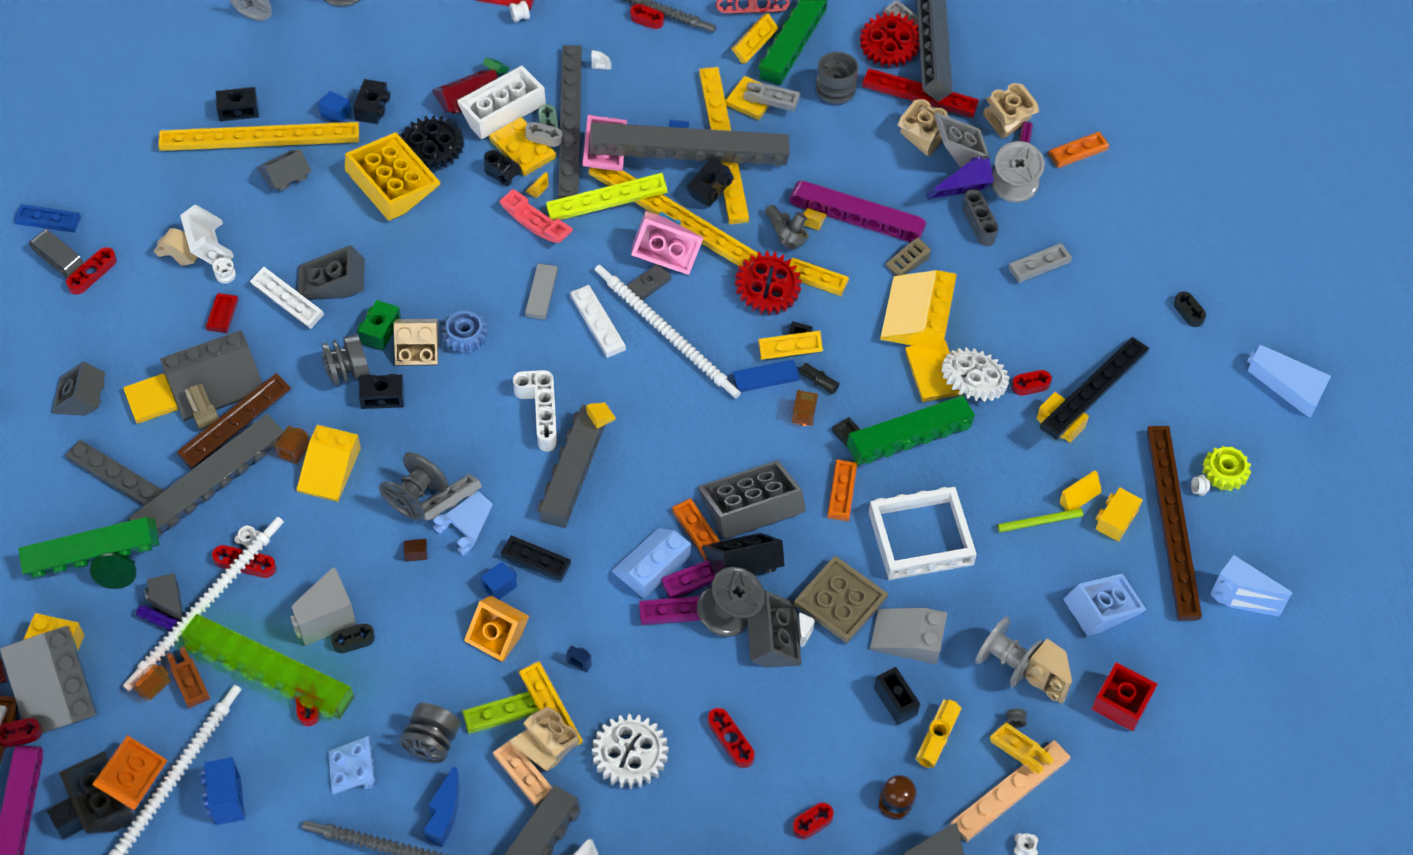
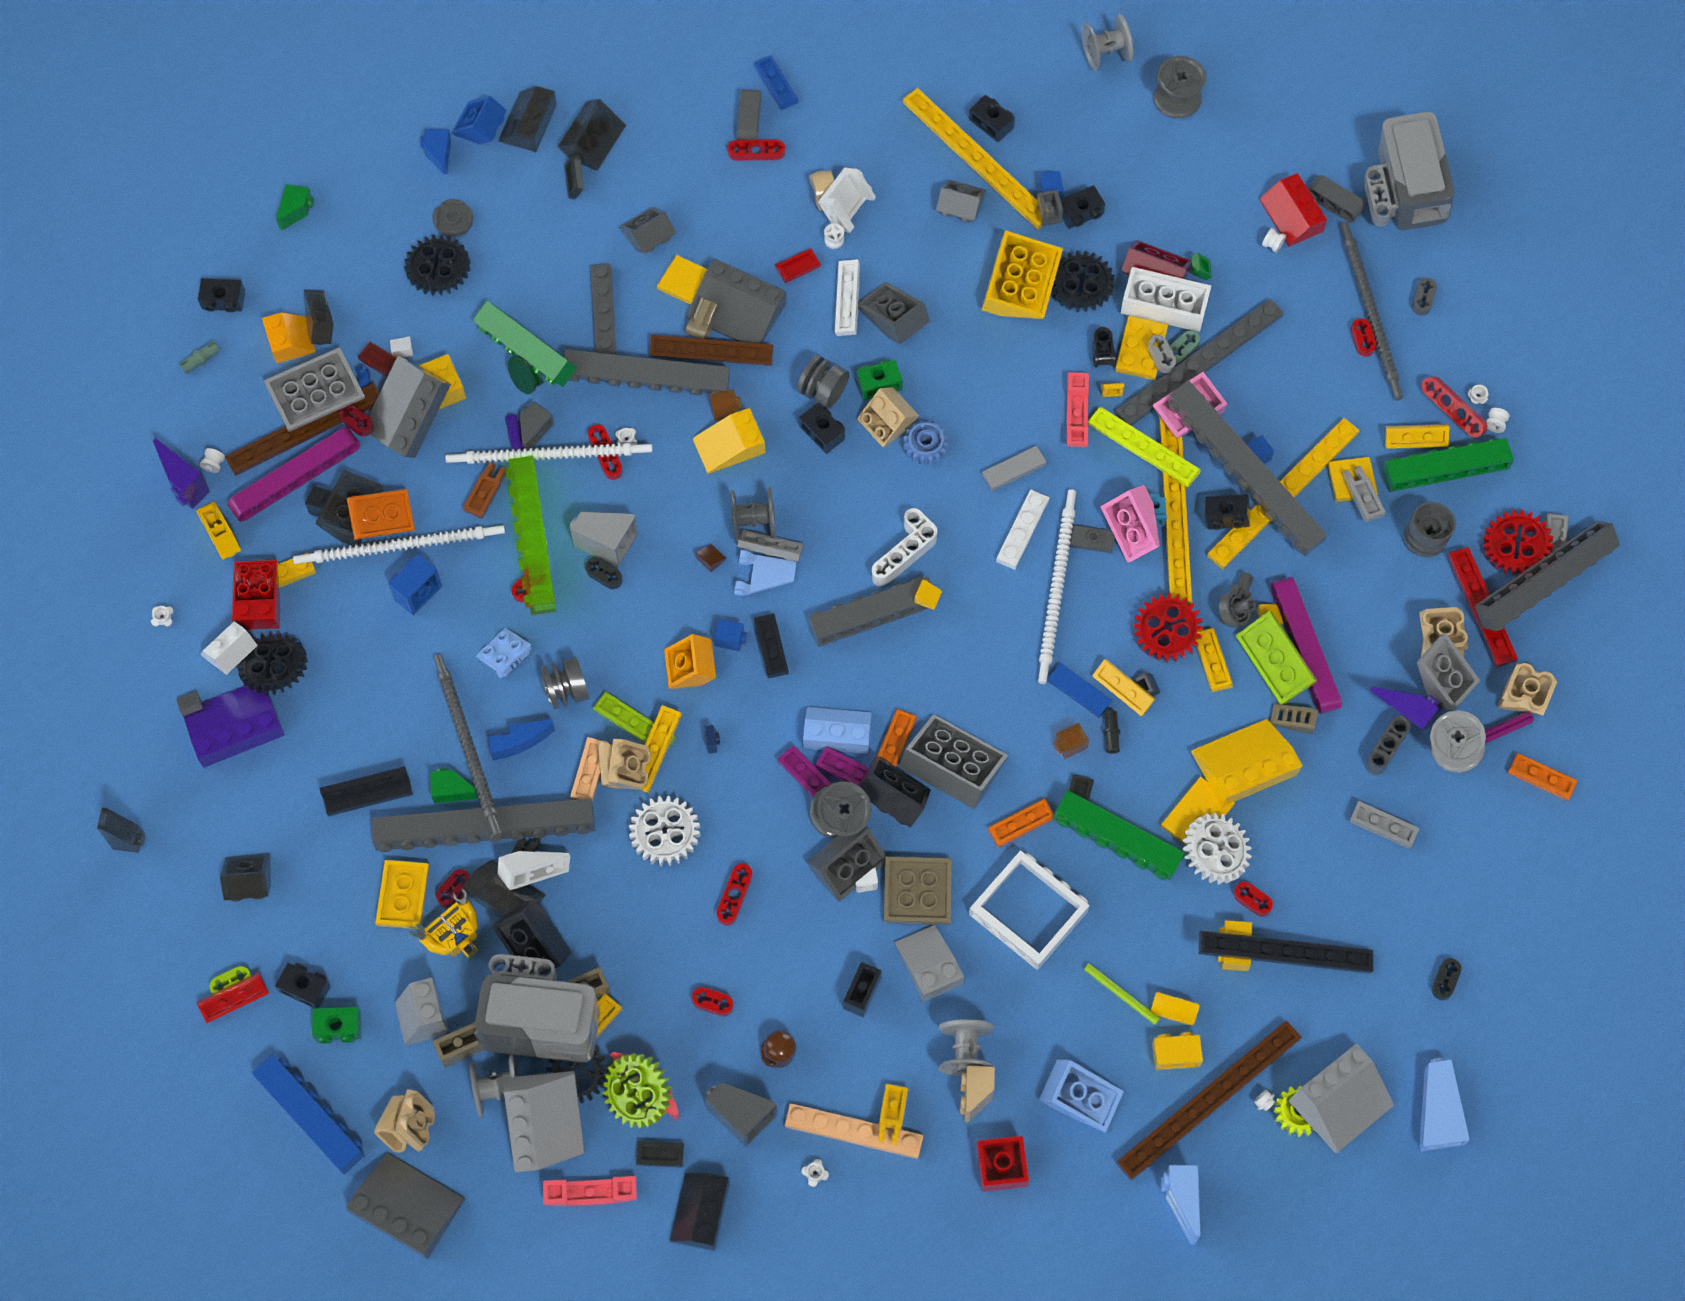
camera: 55 degrees right, 10 degrees up
(151, 681) = (460, 470): clear orange brick -> none
(354, 115) = (1050, 207): none -> dark grey window
(600, 61) = (1280, 338): white tile -> none
(853, 234) = (1276, 658): none -> lime tile
(933, 744) = (872, 1040): yellow piece -> none
(1016, 718) = (918, 1093): dark grey bush -> none
(1240, 430) = (1343, 1099): none -> light grey slope

